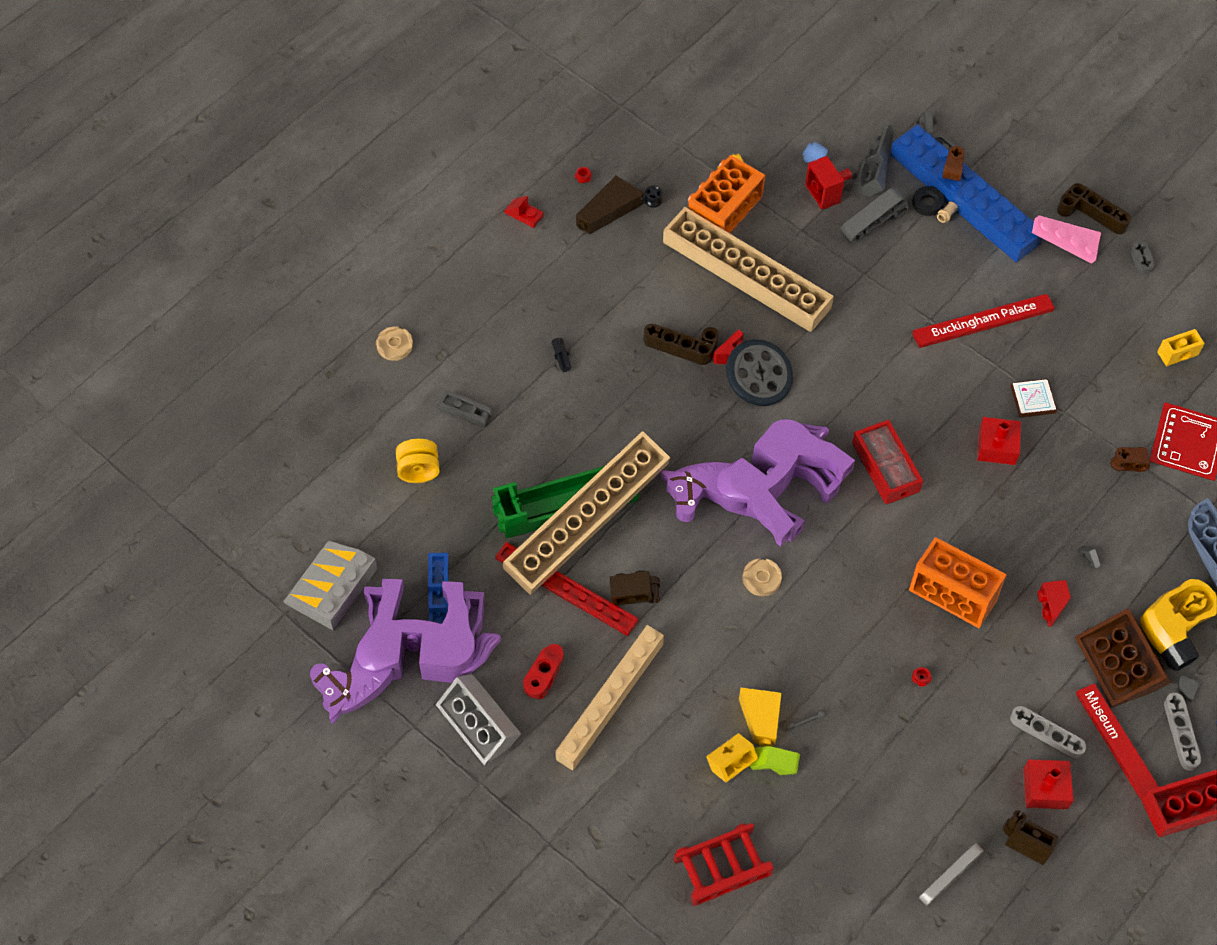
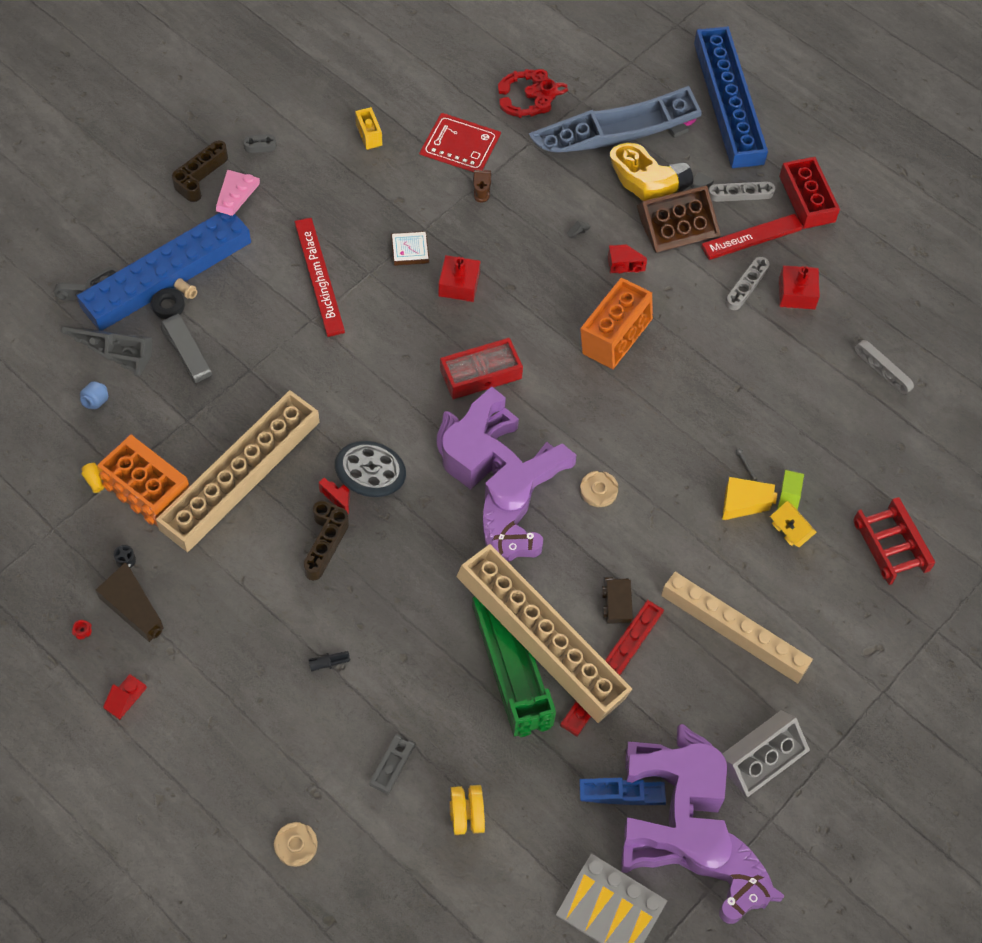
camera: 90 degrees left, 0 degrees up
(549, 658) = (695, 682): red piece -> none
(825, 182) = (137, 386): red brick -> none
(921, 671) = (700, 364): red plate -> none
(953, 164) = (144, 267): reddish brown piece -> none
(1030, 839) = (849, 306): dark brown hinge -> none

